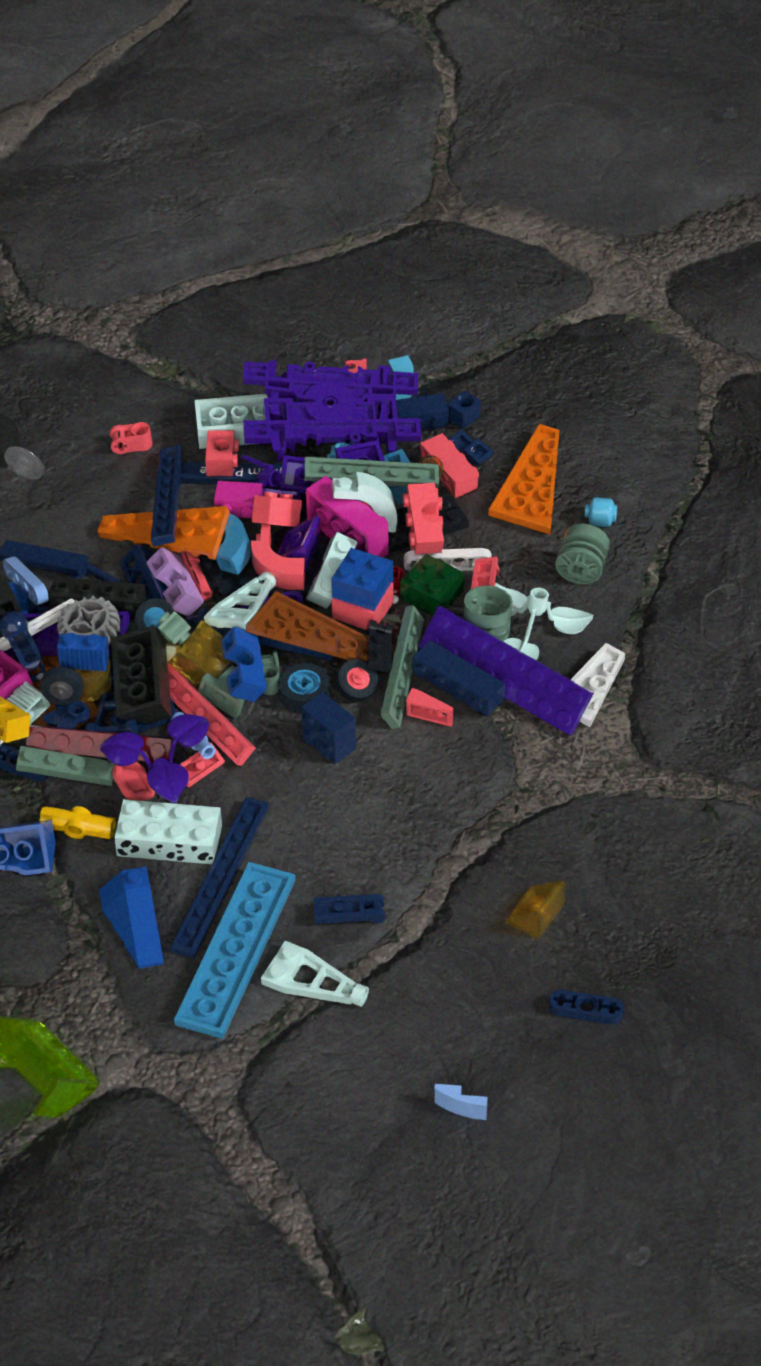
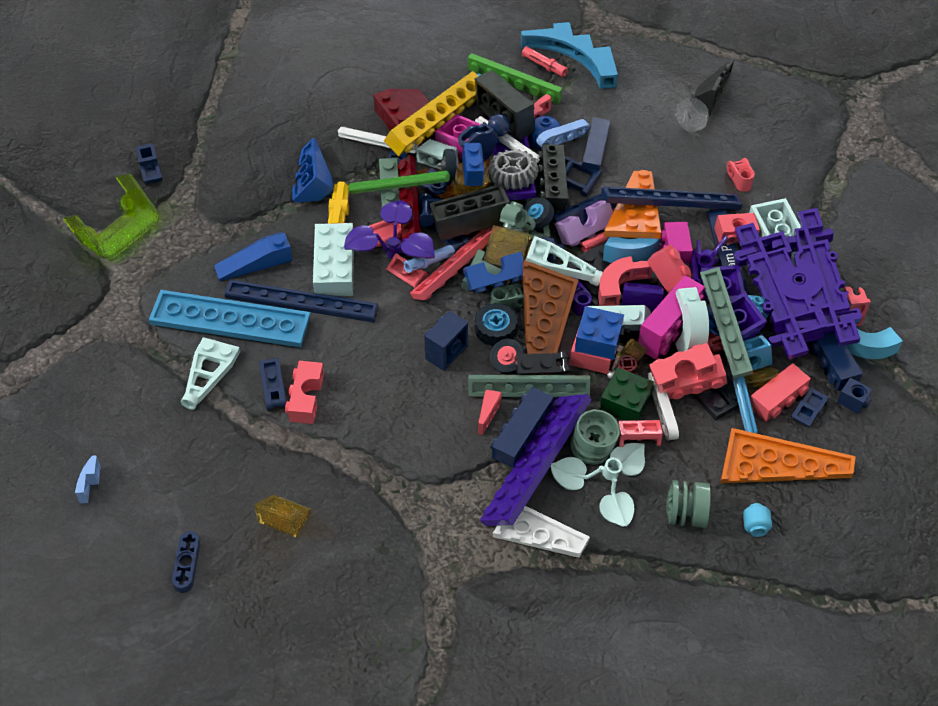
camera: 80 degrees right, 5 degrees up
(73, 741) = (399, 182): none -> bright green axle
(388, 881) = (306, 377): none -> coral arch
(466, 493) = (745, 405): none -> dark azure axle

